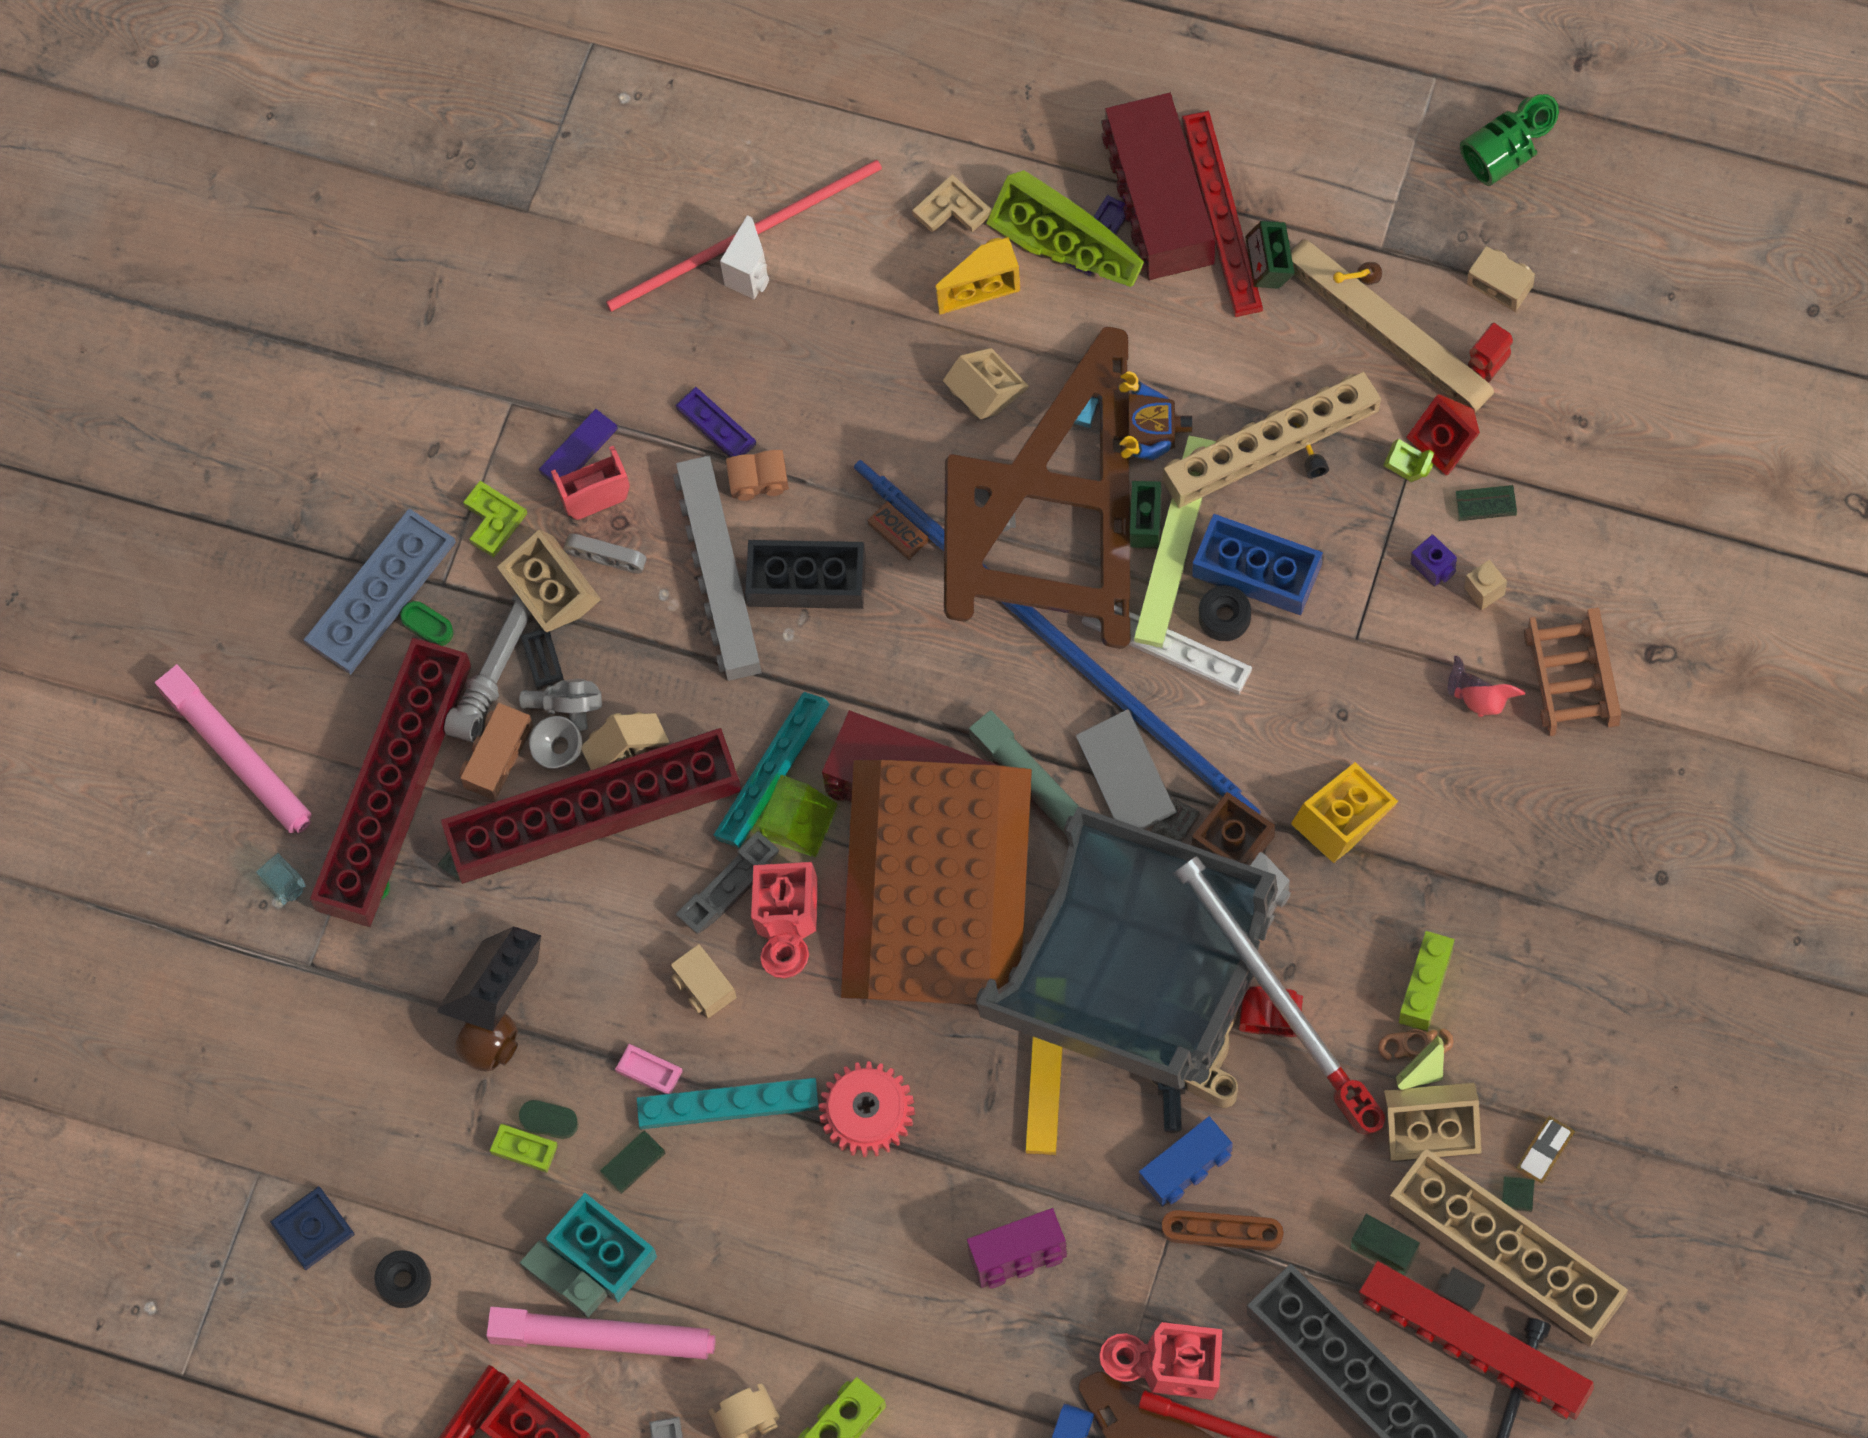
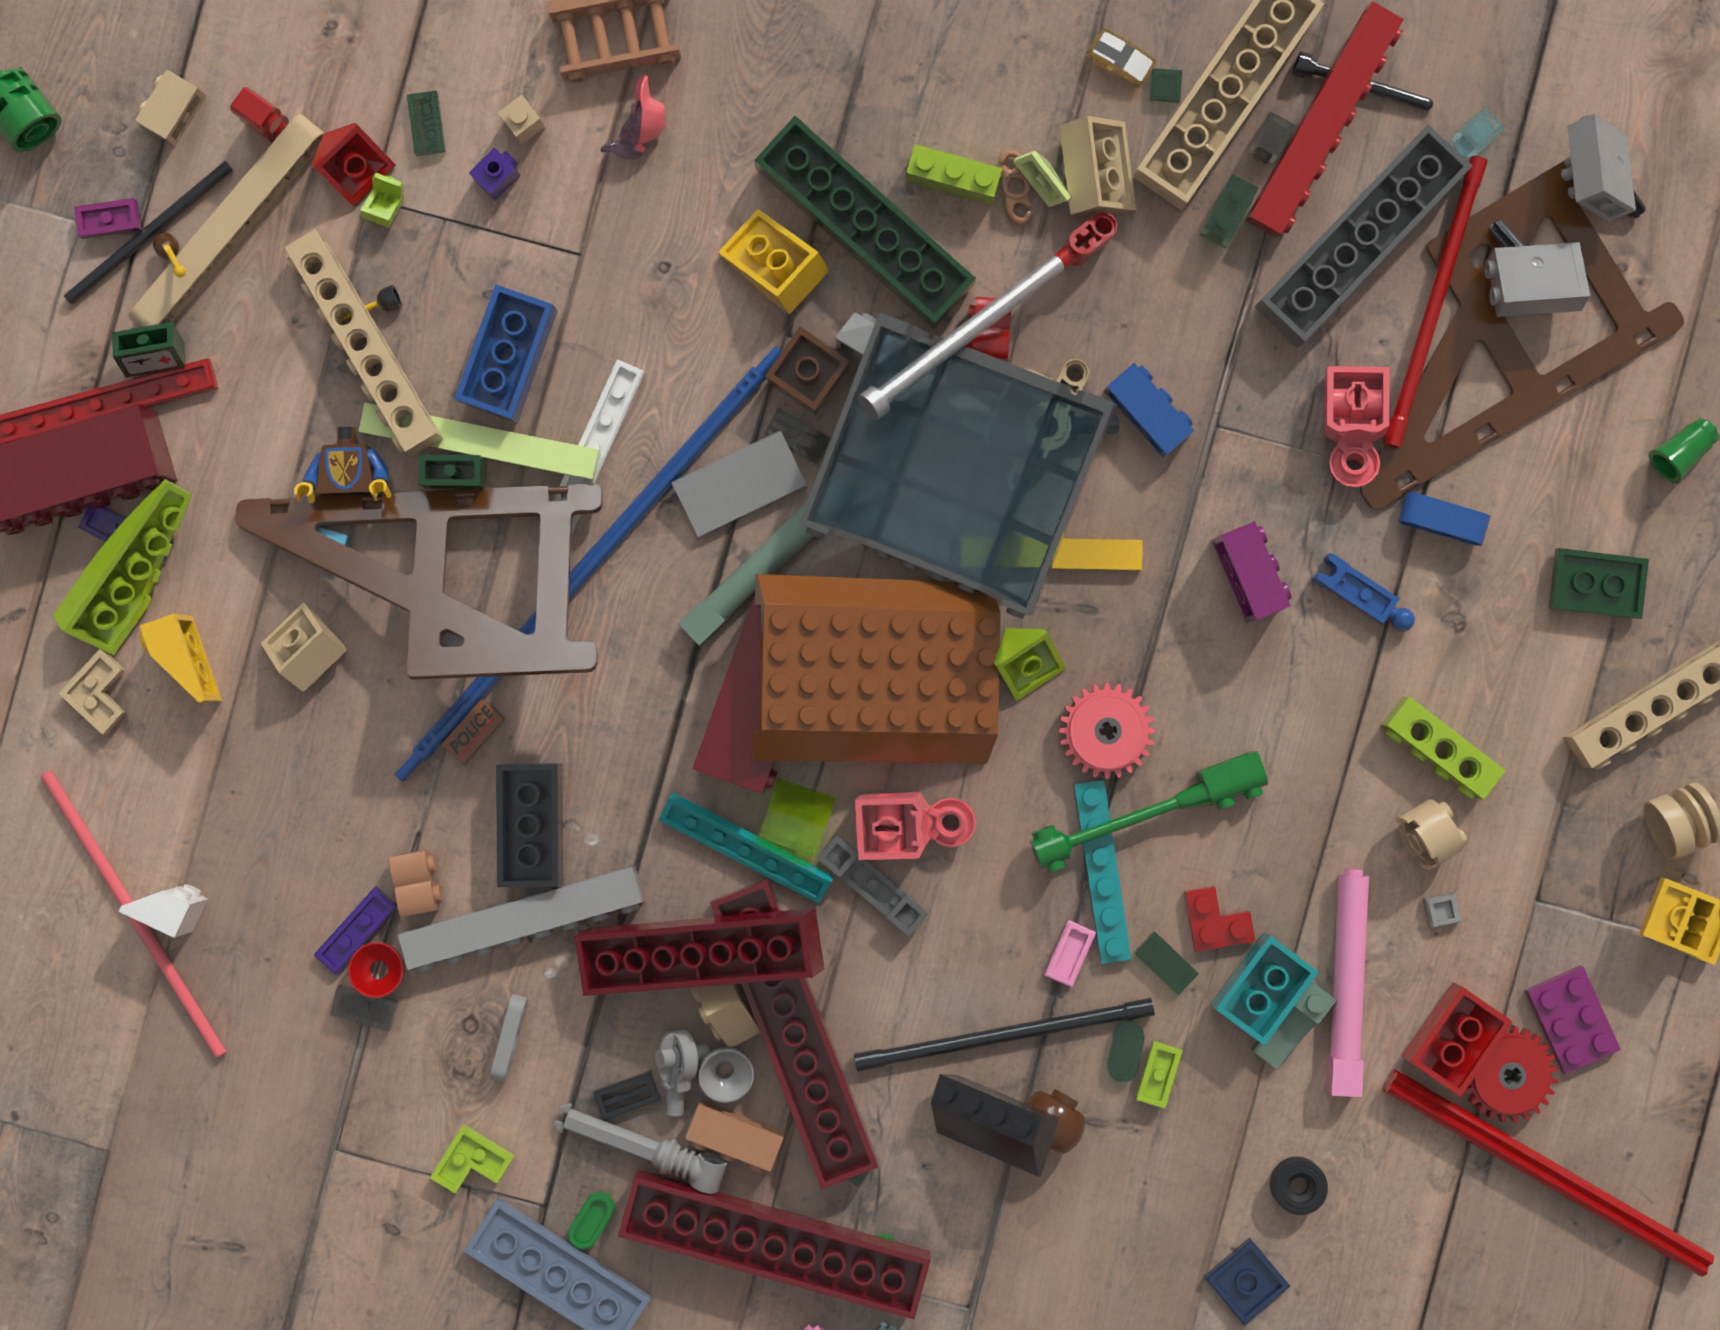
camera: 100 degrees left, 20 degrees up
(548, 582) = (545, 1095): tan slope -> none
(579, 446) = (388, 1075): dark purple tile -> none
(587, 1121) = (1126, 1011): none -> black piece
(593, 487) = (436, 1058): coral piece -> none
(643, 428) = (364, 1010): none -> clear smoke plate
(666, 1203) = (1210, 928): none -> red plate
(674, 712) = (700, 952): none -> dark red brick
(680, 426) = (360, 970): none -> red piece
(702, 981) = (978, 905): tan brick -> none
(805, 1211) = (1216, 785): none -> green bar
(940, 1034) = (1027, 660): none -> lime slope
(991, 1367) = (1364, 594): none -> blue plate
(1222, 1230) = (1216, 372): dark orange plate -> none
(1224, 597) = (554, 371): black tyre -> none
(1378, 894) = (864, 222): none -> dark green brick
(1384, 259) = (148, 232): none -> black piece
(1397, 224) = (107, 218): none -> magenta plate

